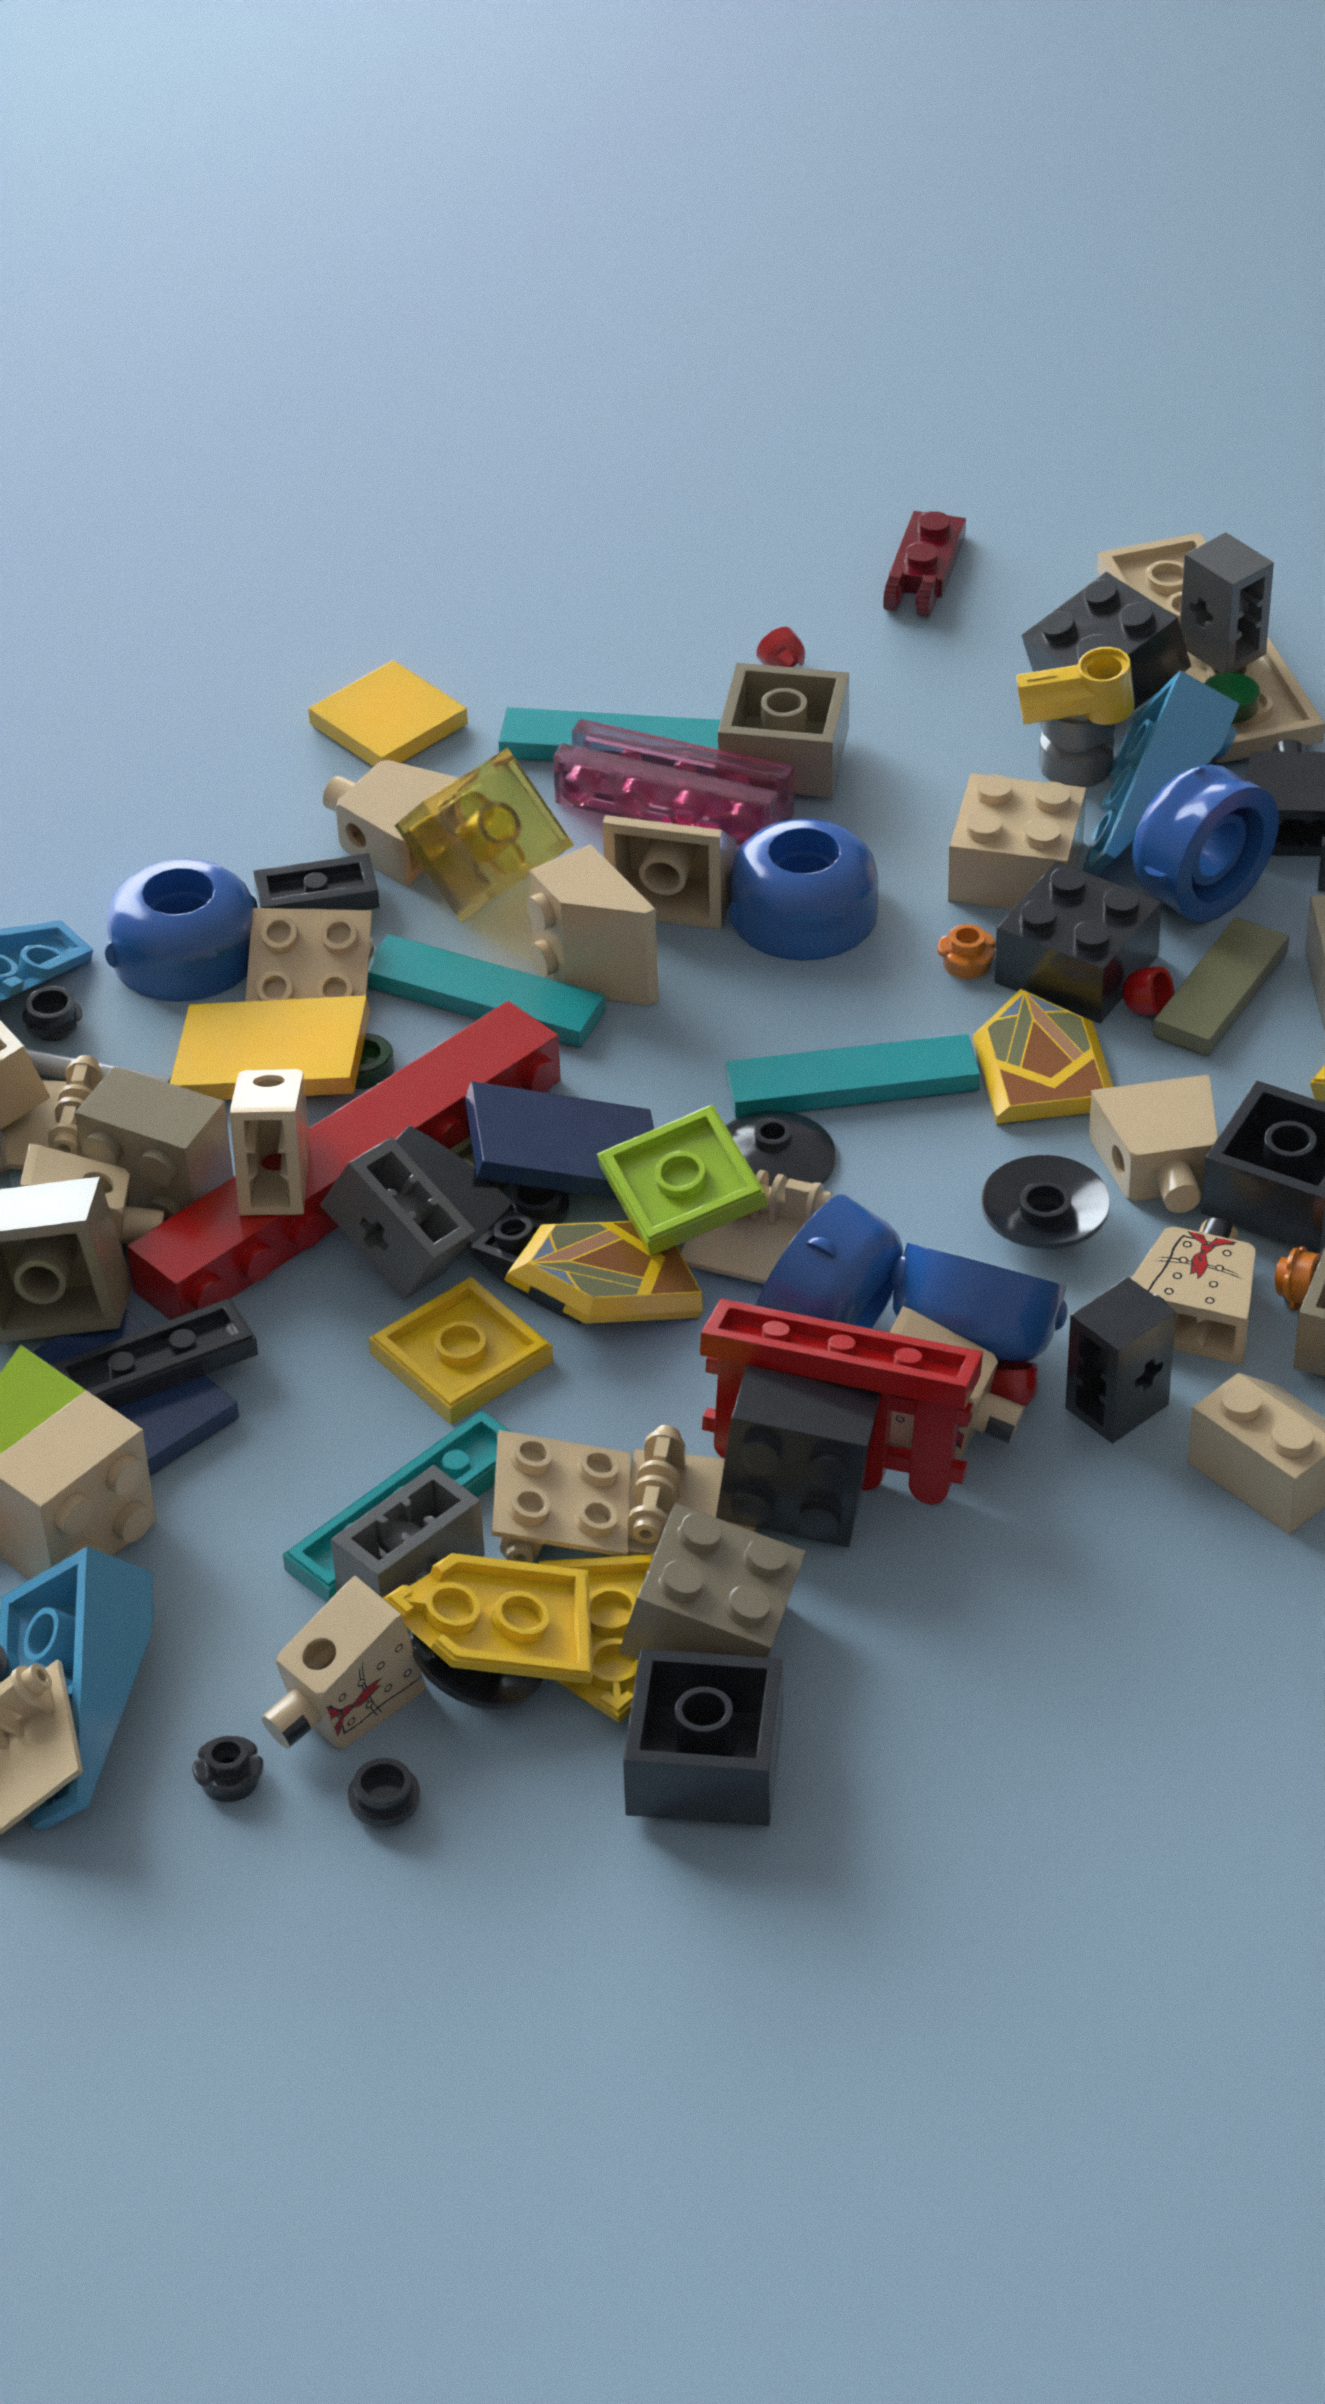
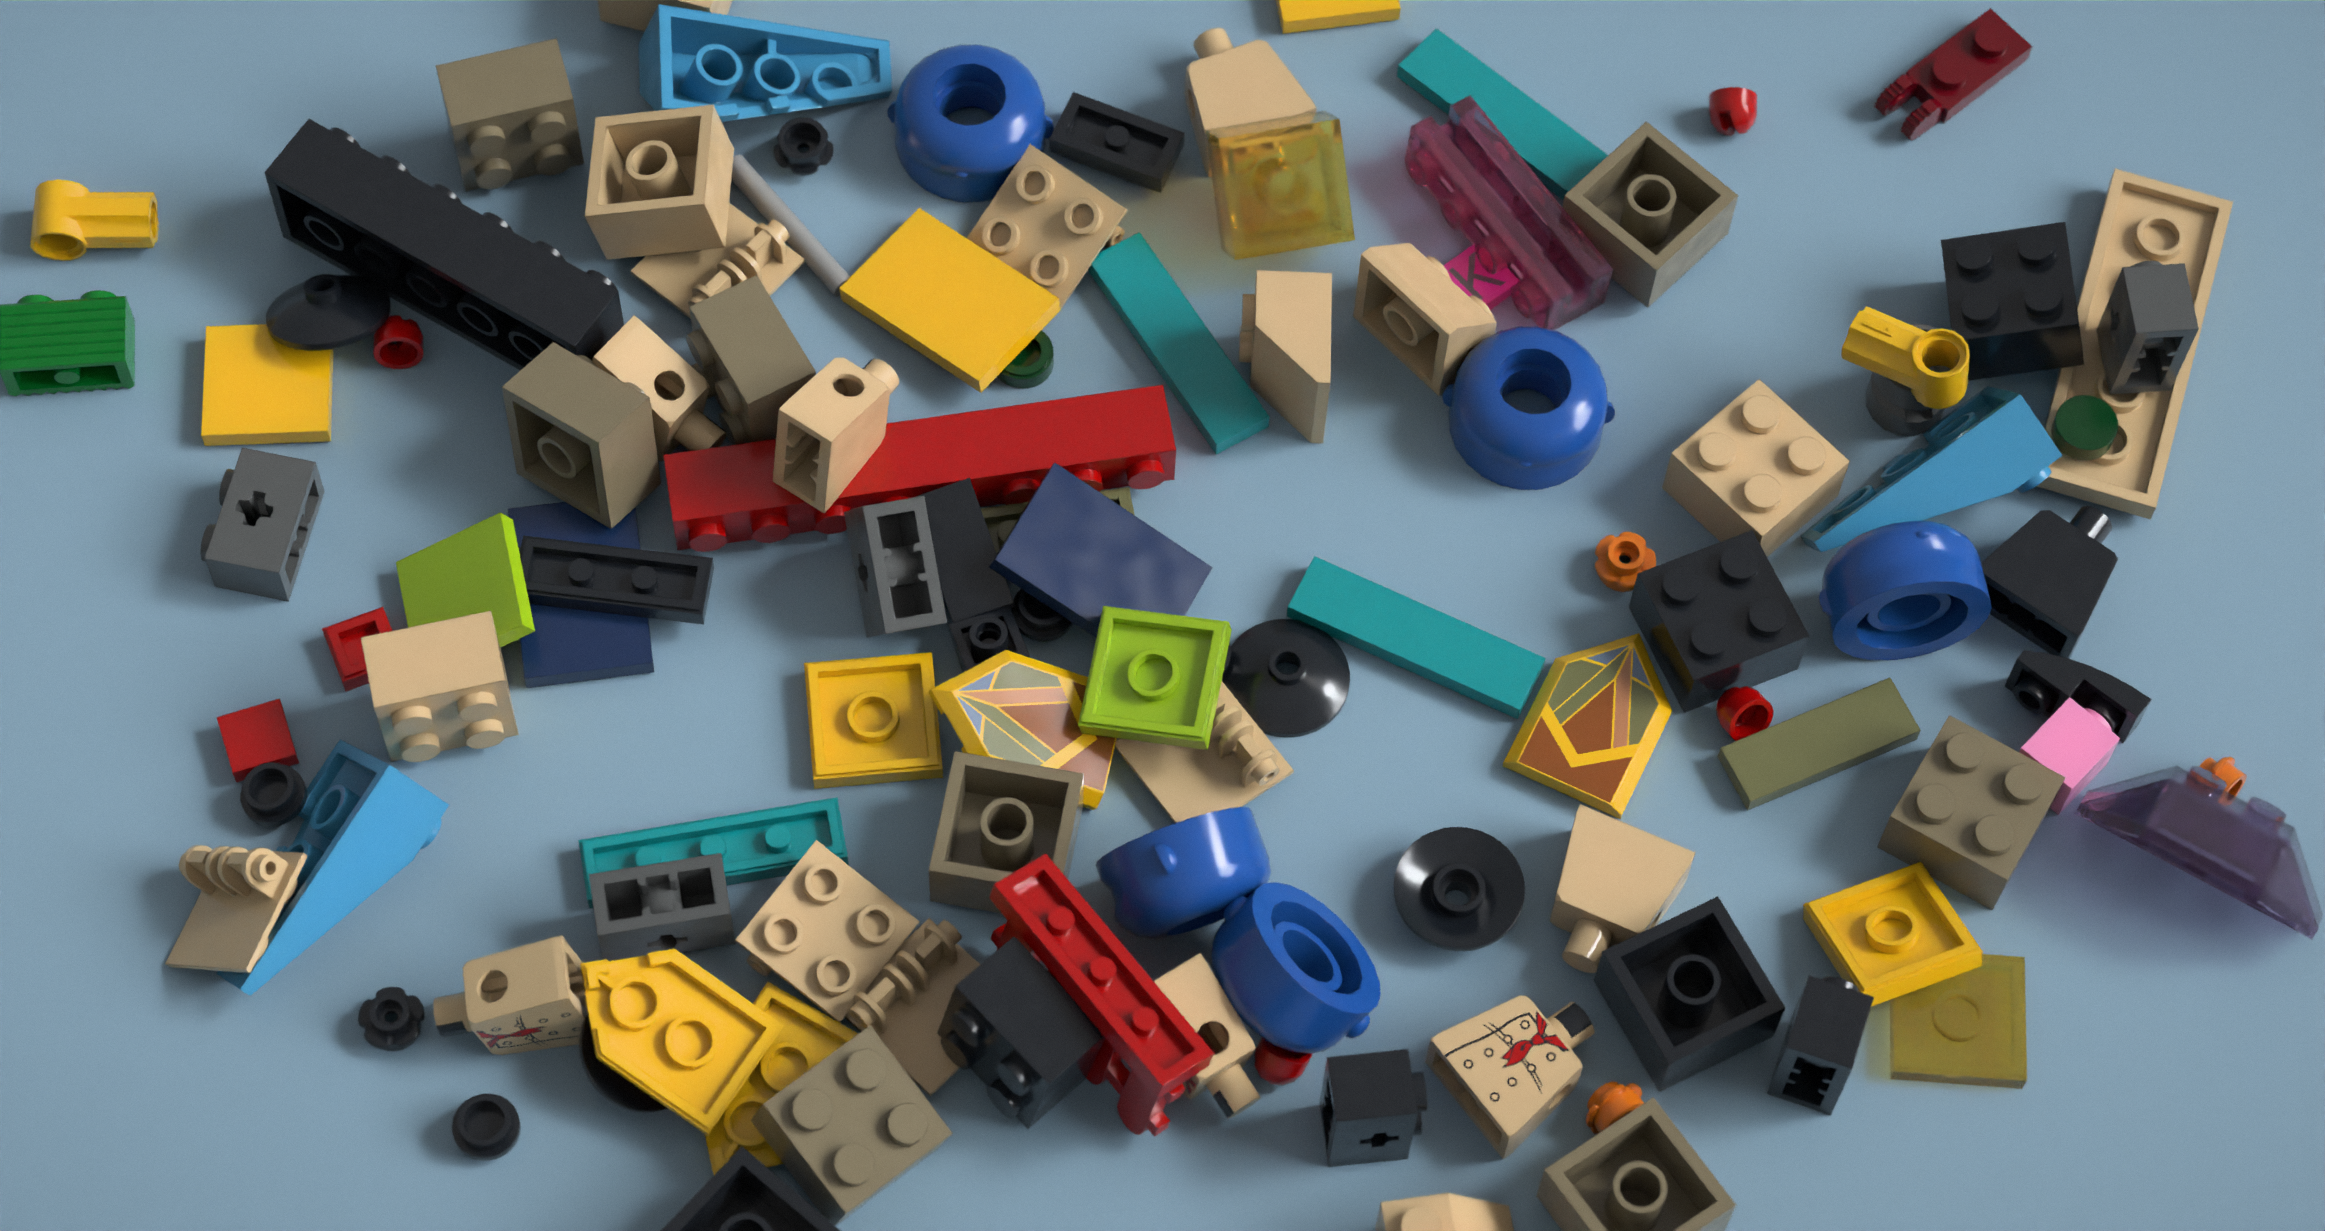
camera: 30 degrees right, 20 degrees up
(643, 1347) = (998, 821): none -> dark tan brick

